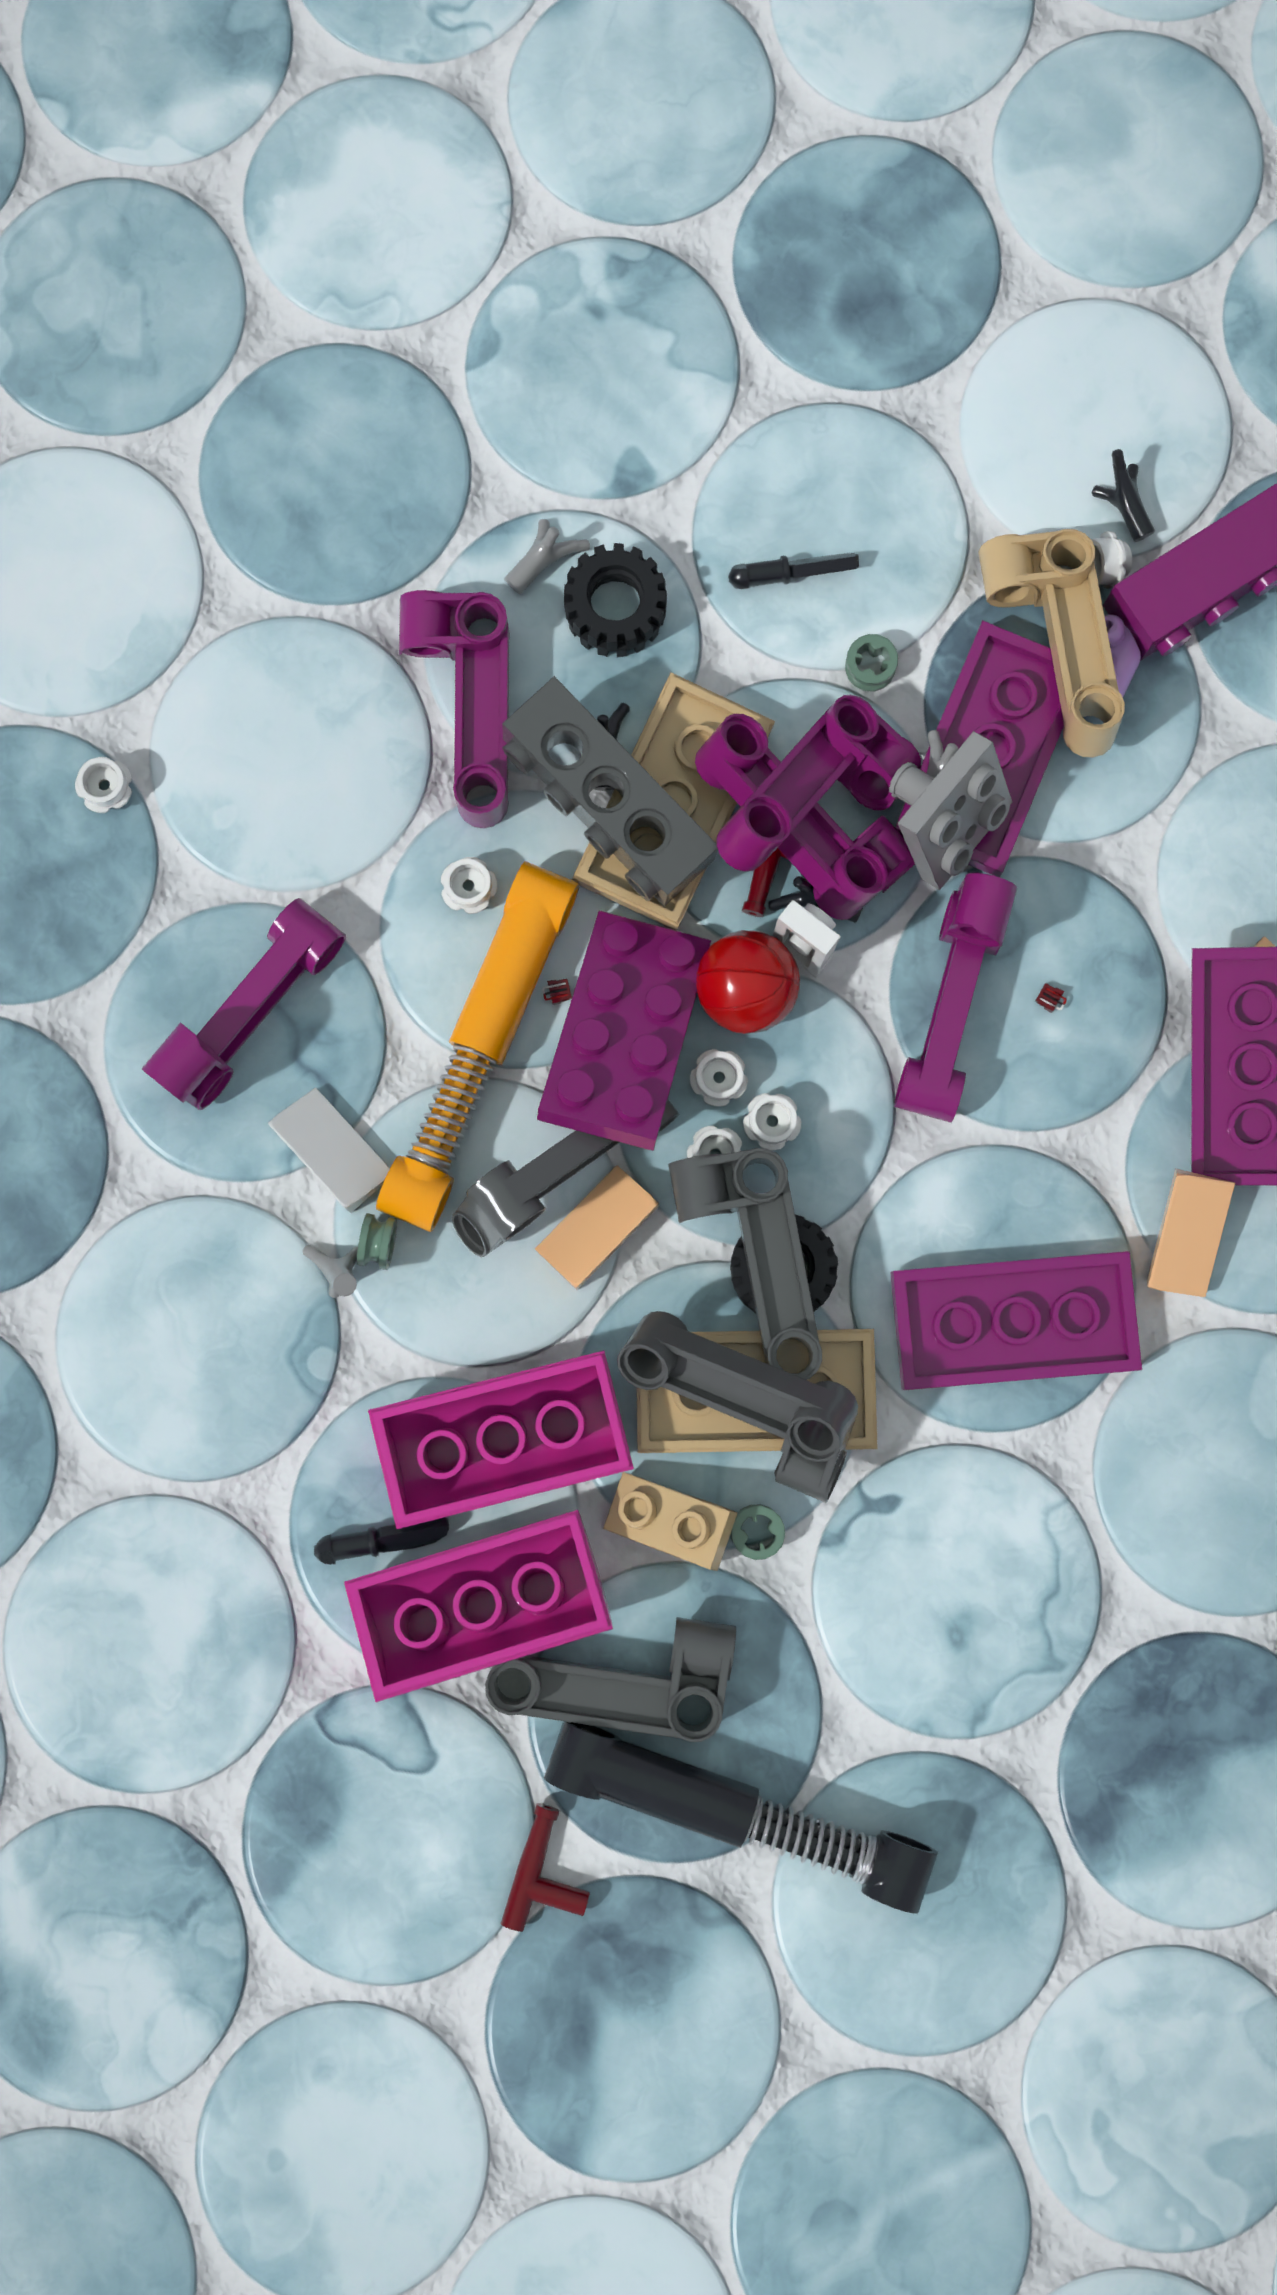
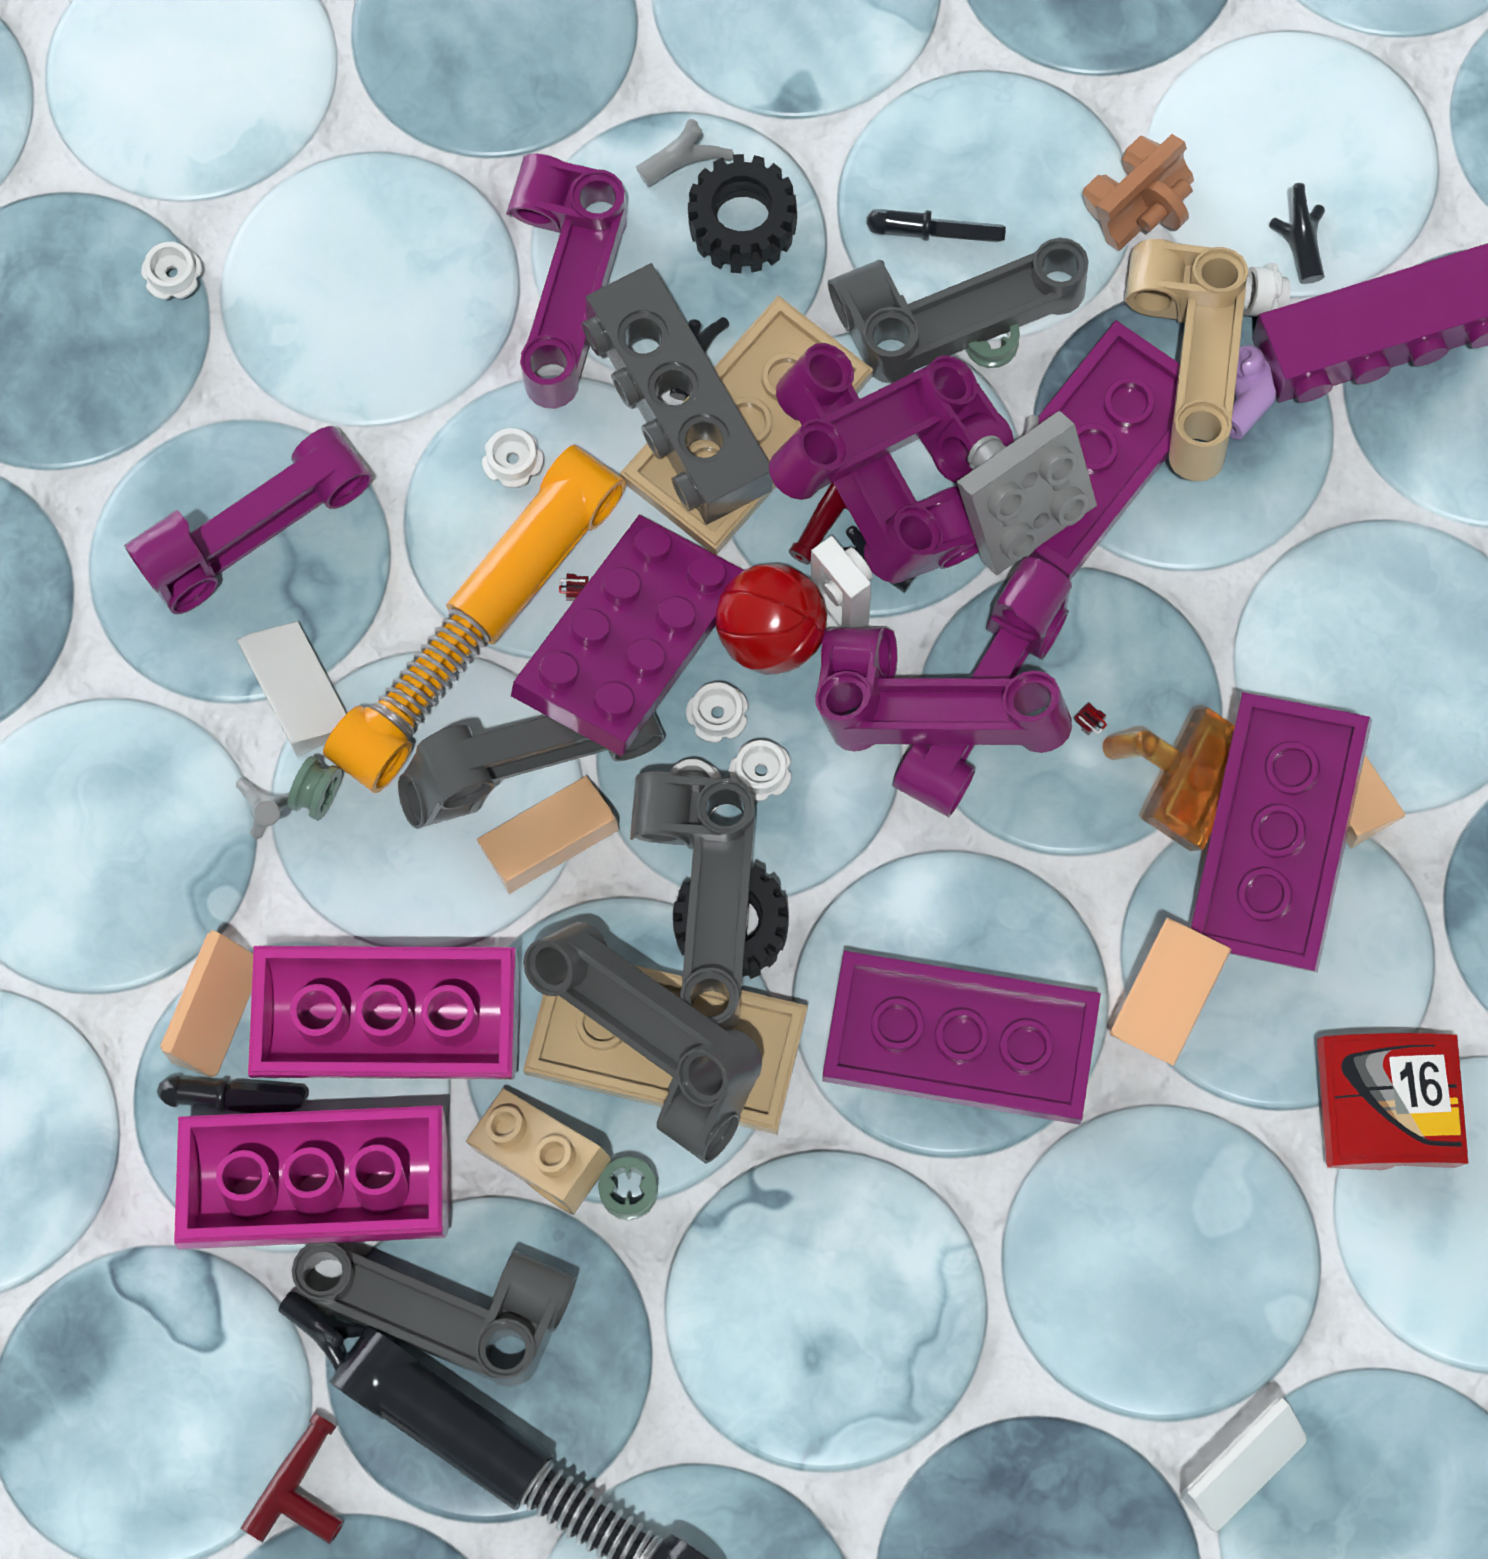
camera: 20 degrees right, 10 degrees down
(341, 1465) = (210, 1006): none -> light nougat slope
(522, 1728) = (322, 1328): none -> black bar
(831, 658) = (957, 315): none -> dark grey piece
(911, 1035) = (861, 673): none -> magenta piece
(982, 494) = (1147, 195): none -> nougat hips
(1159, 1031) = (1192, 776): none -> clear orange plate

